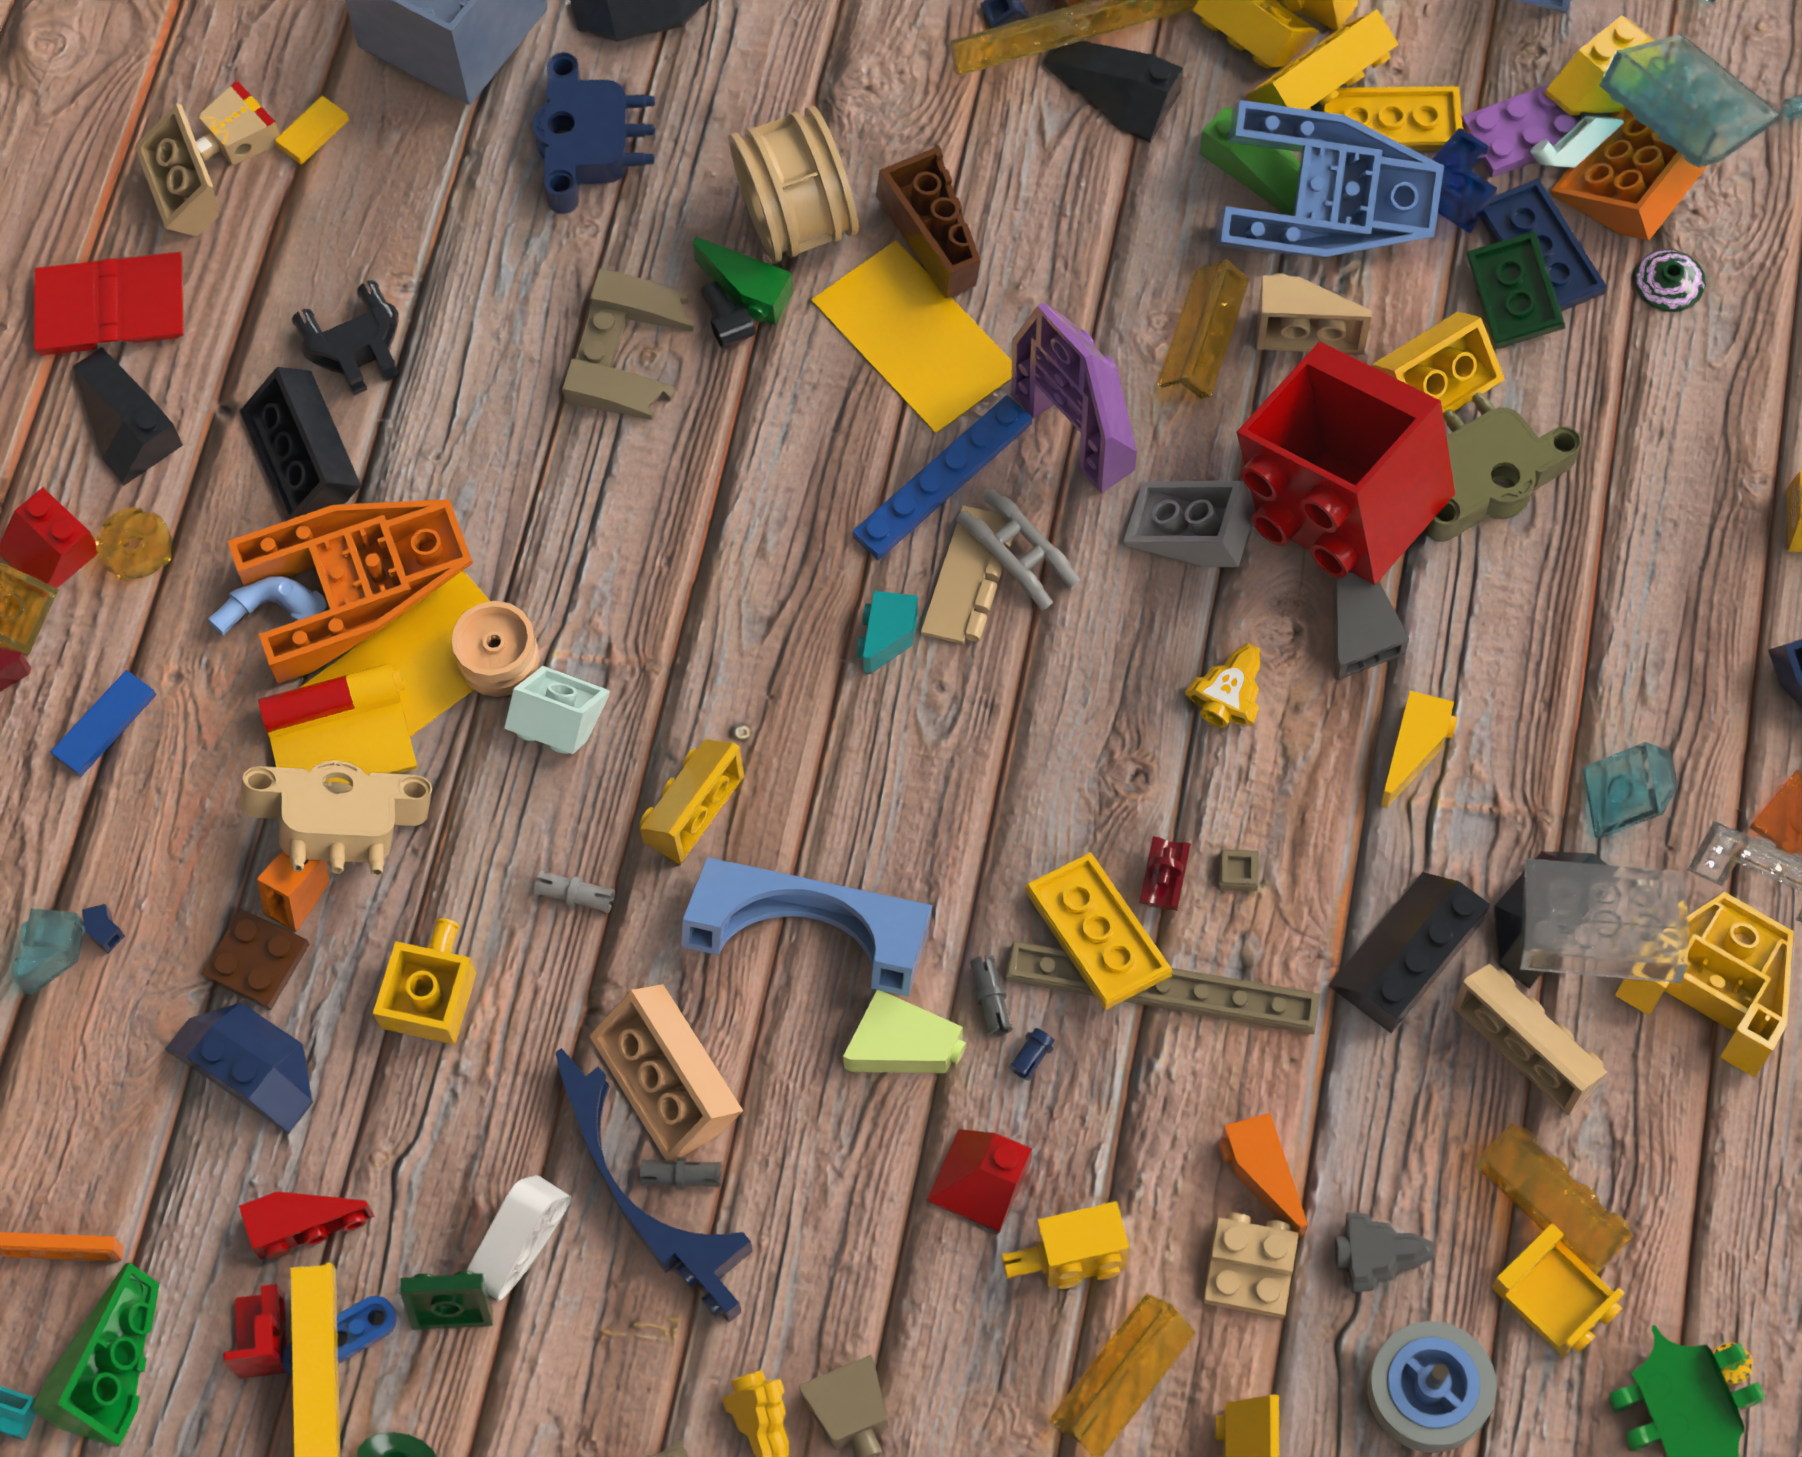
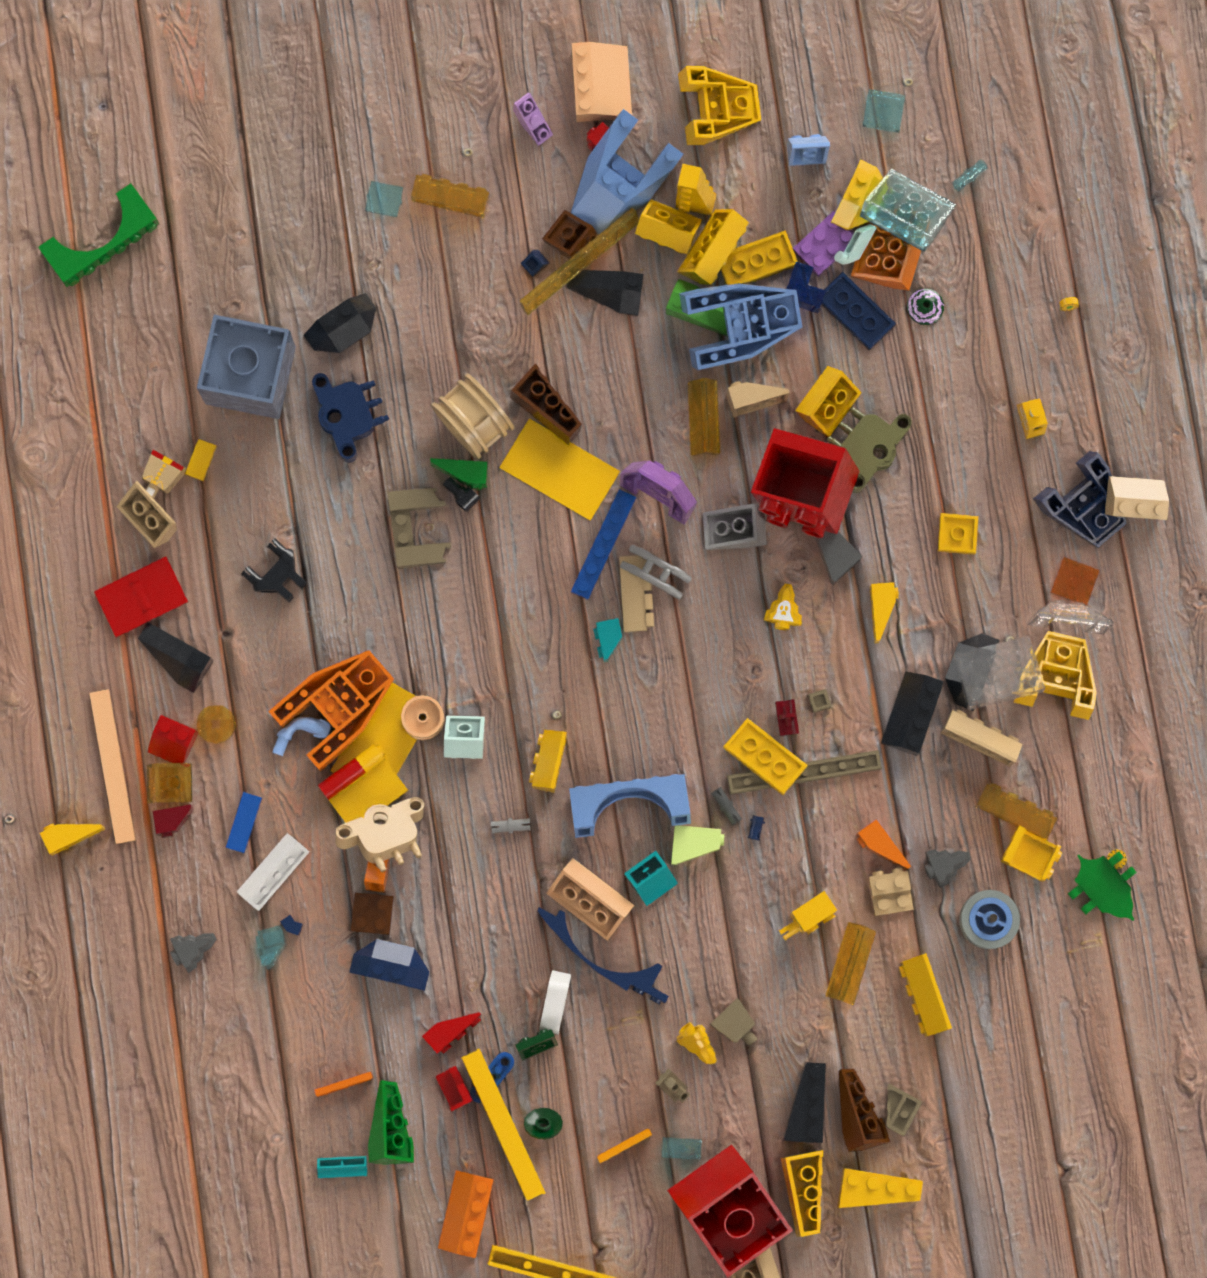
camera: 25 degrees left, 15 degrees up
(113, 824) = (272, 871): none -> white panel
(299, 443) = (276, 643): black slope -> none
(426, 987) = (462, 899): yellow brick -> none
(681, 1173) = (616, 943): dark grey pin -> none
(794, 1071) = (651, 878): none -> teal slope
(981, 1177) = (754, 895): red slope -> none
(1515, 290) = (851, 341): dark green tile -> none
(1604, 667) = (957, 533): none -> yellow tile
(1629, 787) = (989, 596): clear light blue slope -> none

